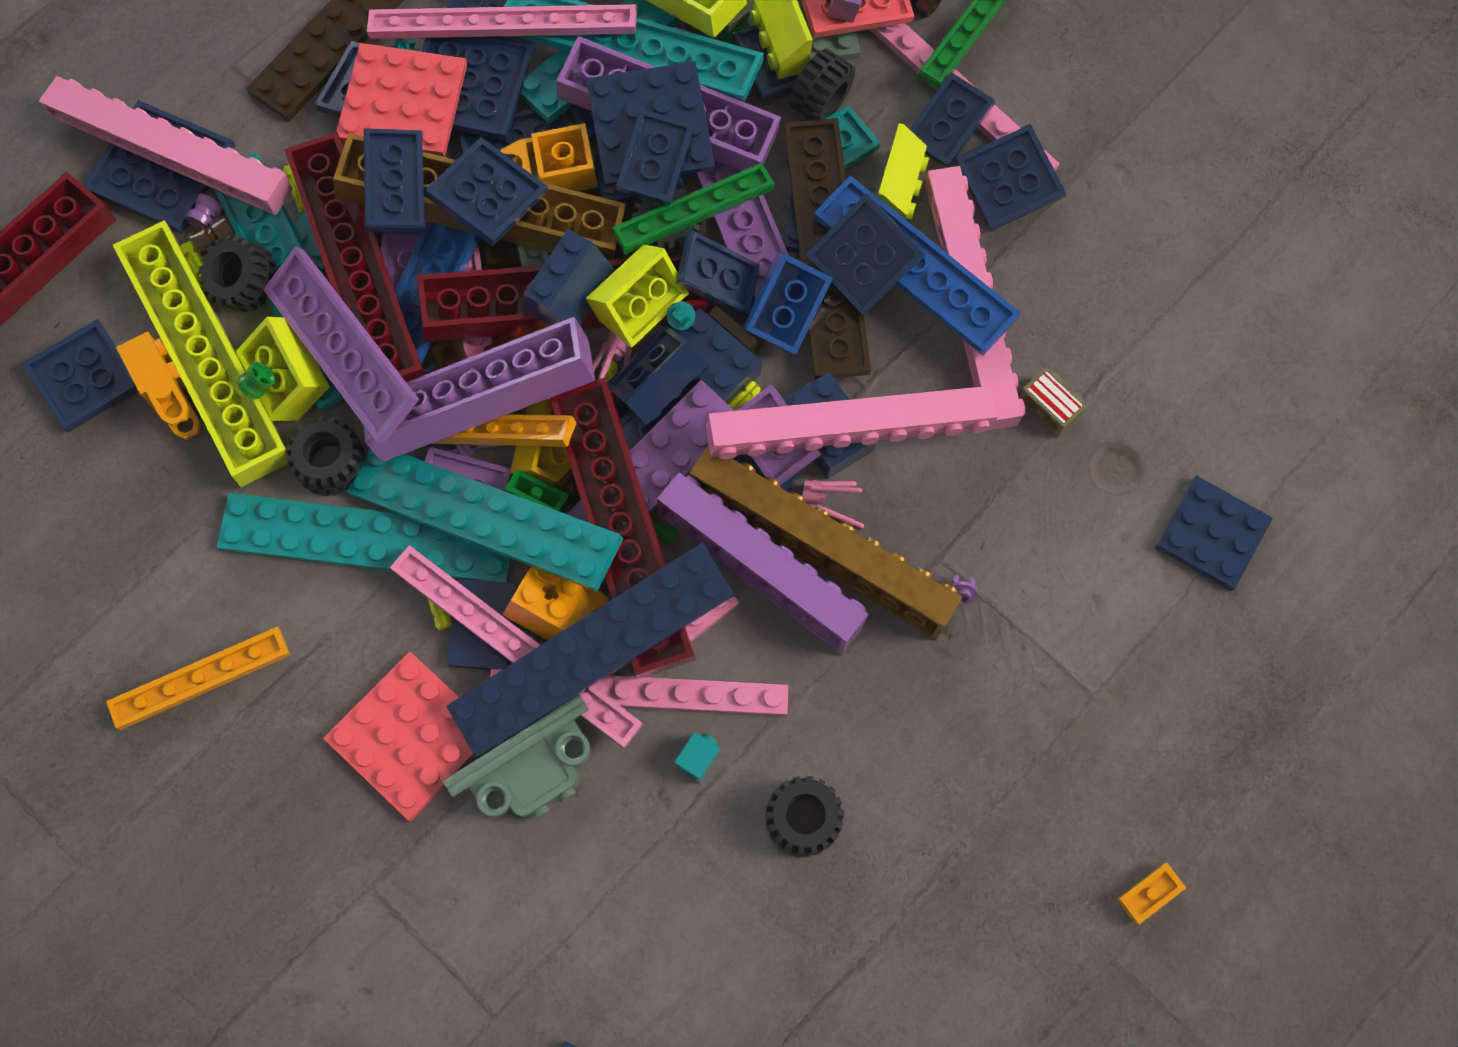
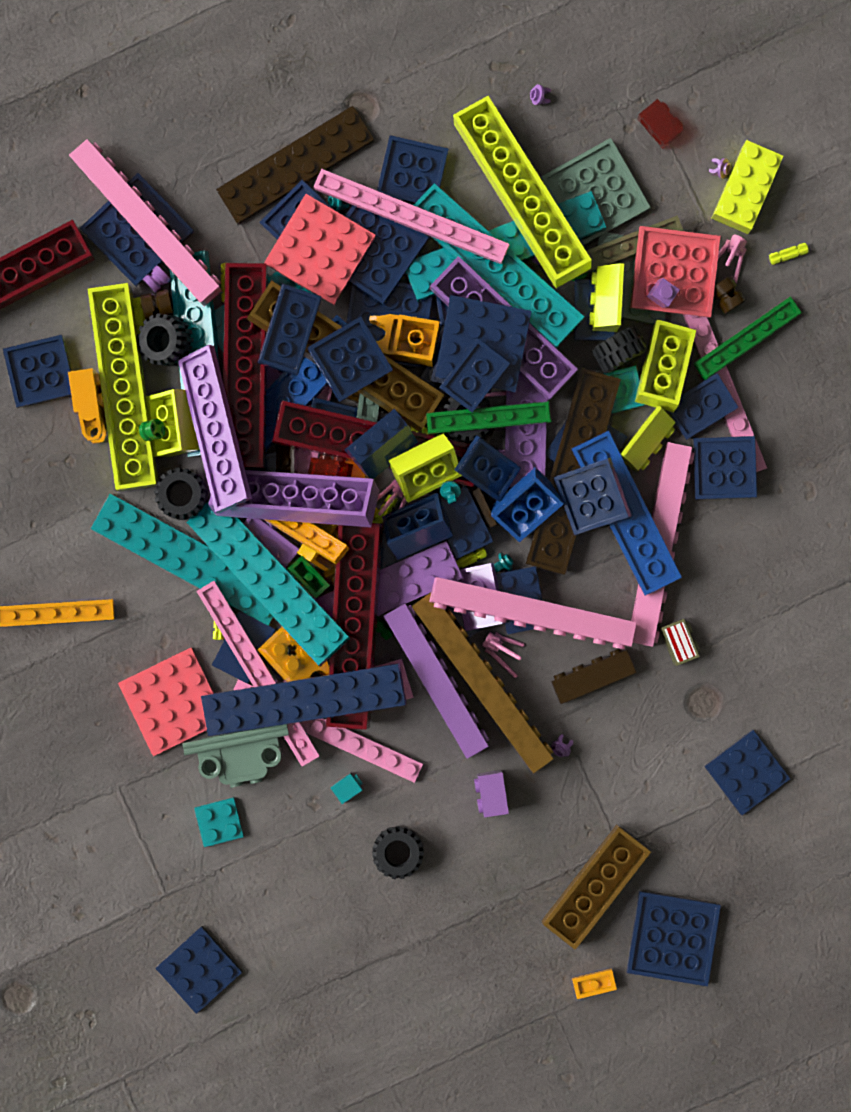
camera: 25 degrees right, 15 degrees up
(535, 878) = (219, 822): none -> teal plate
(787, 386) = (505, 562): none -> teal plate
(885, 86) = (665, 365): none -> neon yellow brick
(899, 683) = (492, 794): none -> medium lavender brick
(962, 485) = (593, 676): none -> dark brown brick
(1093, 756) = (595, 887): none -> pearl gold brick
(1227, 787) = (673, 938): none -> dark blue plate

